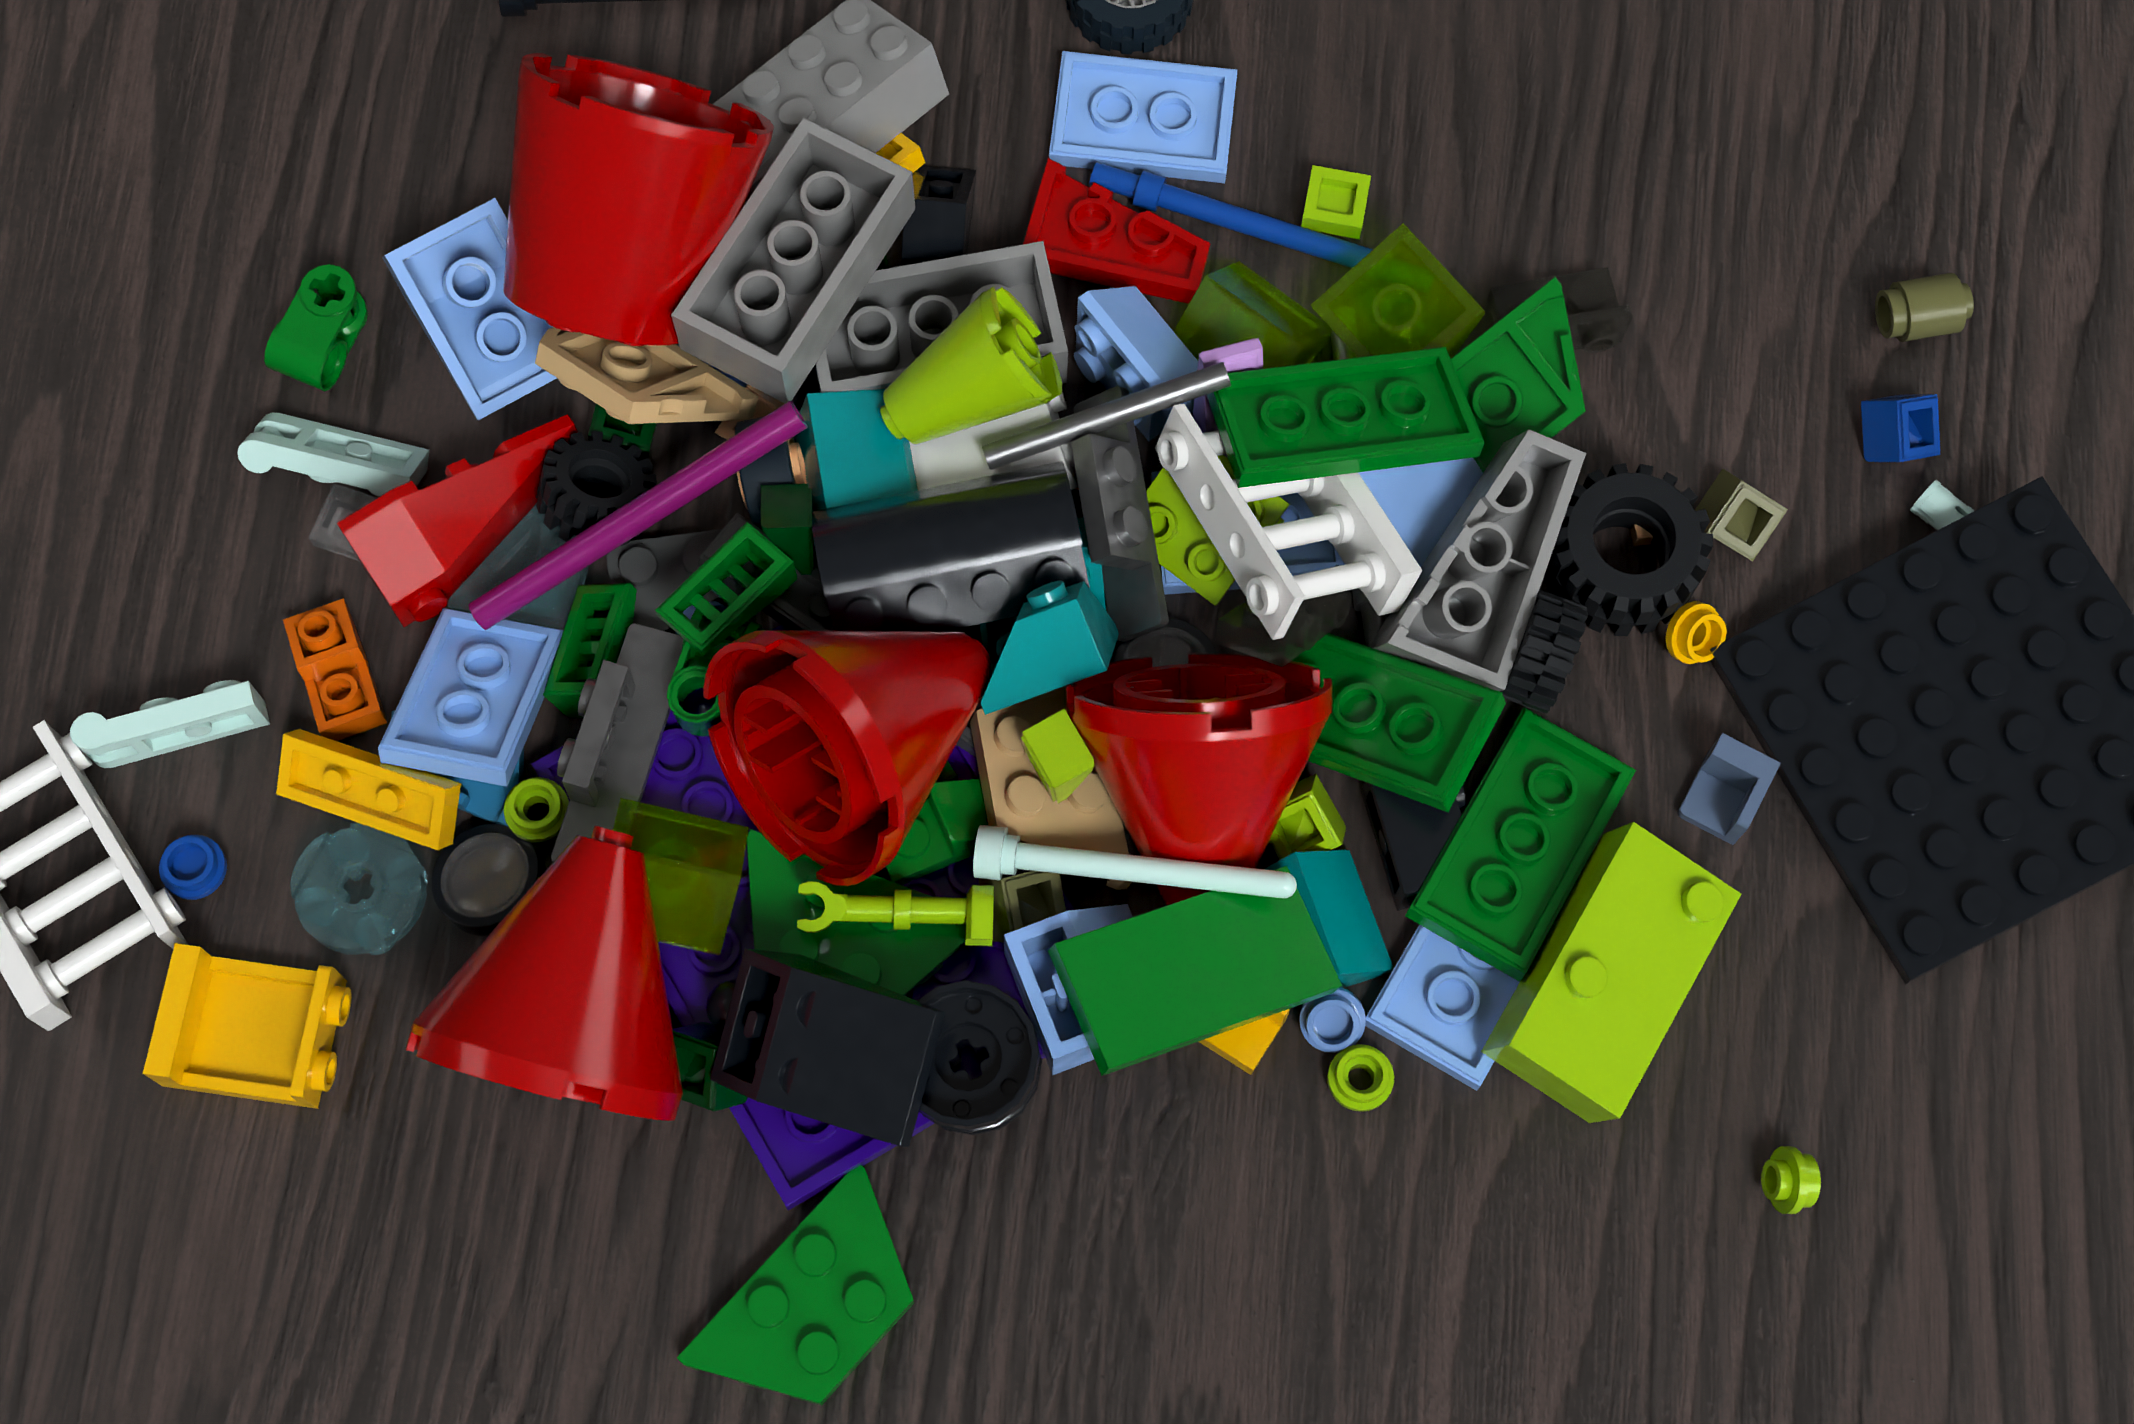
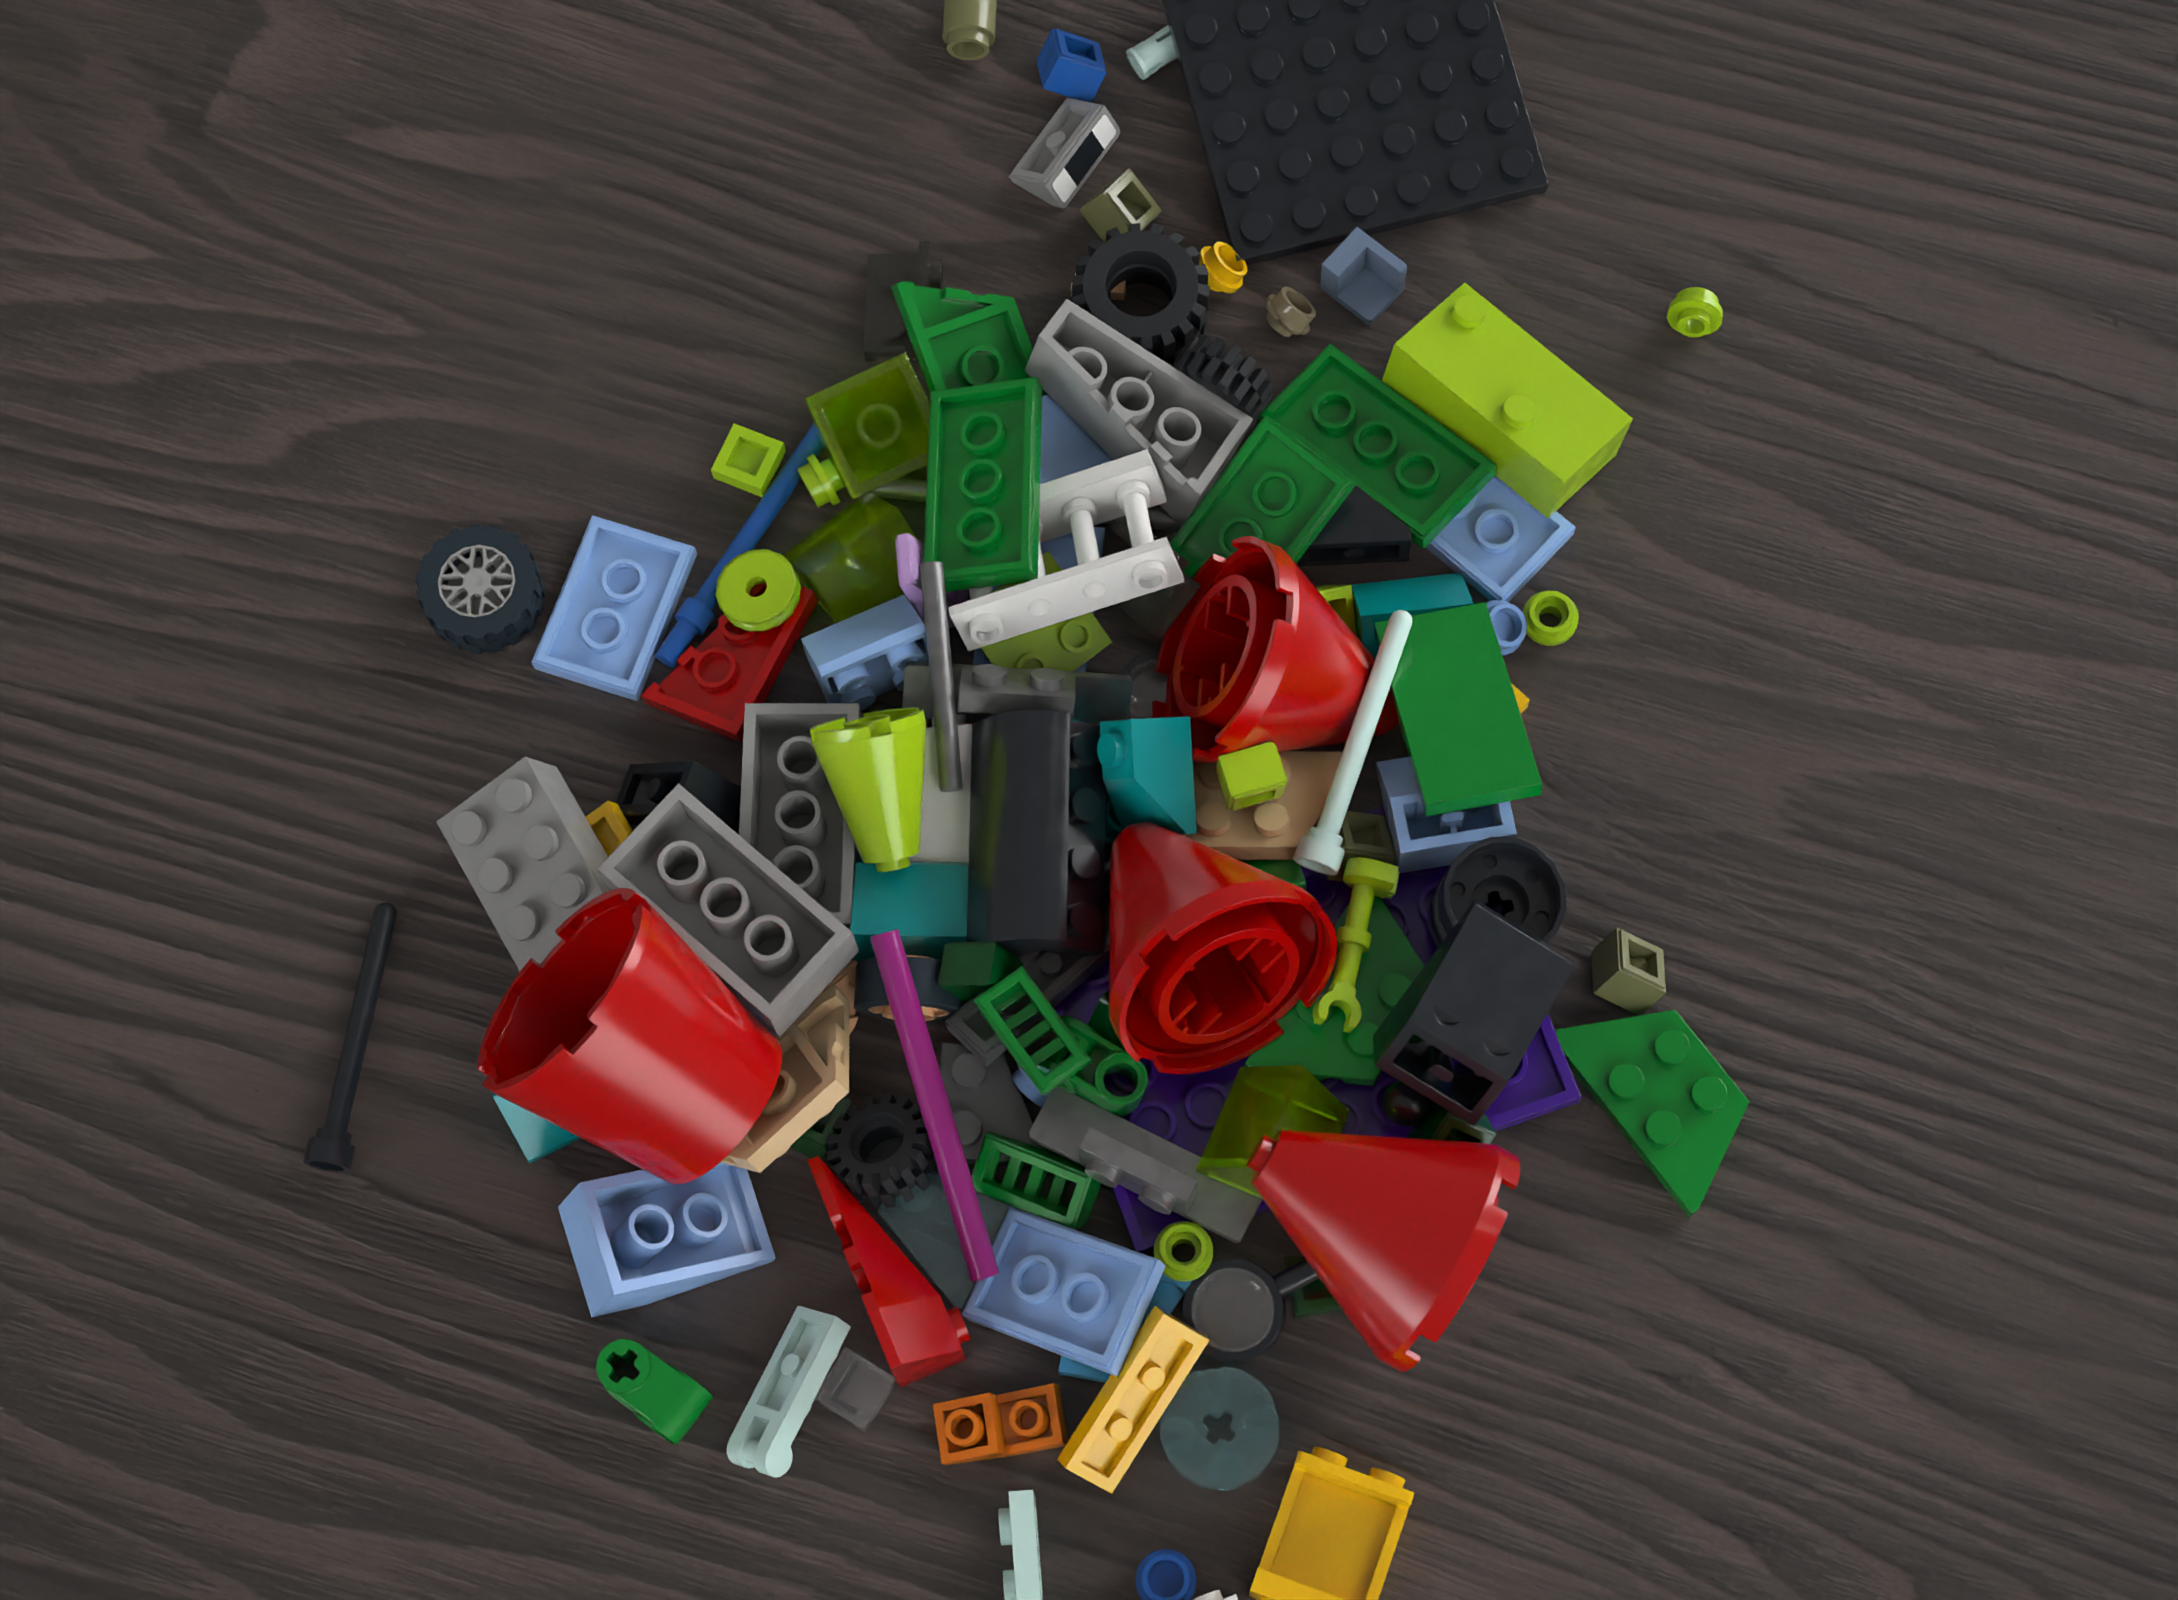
camera: 70 degrees left, 0 degrees up
(950, 1239) = (1628, 971): none -> olive slope
(1180, 258) = (767, 609): none -> lime piece
(1325, 271) = (821, 480): none -> lime plate
(1661, 718) = (1289, 312): none -> dark tan plate
(1794, 447) = (1066, 152): none -> light grey slope

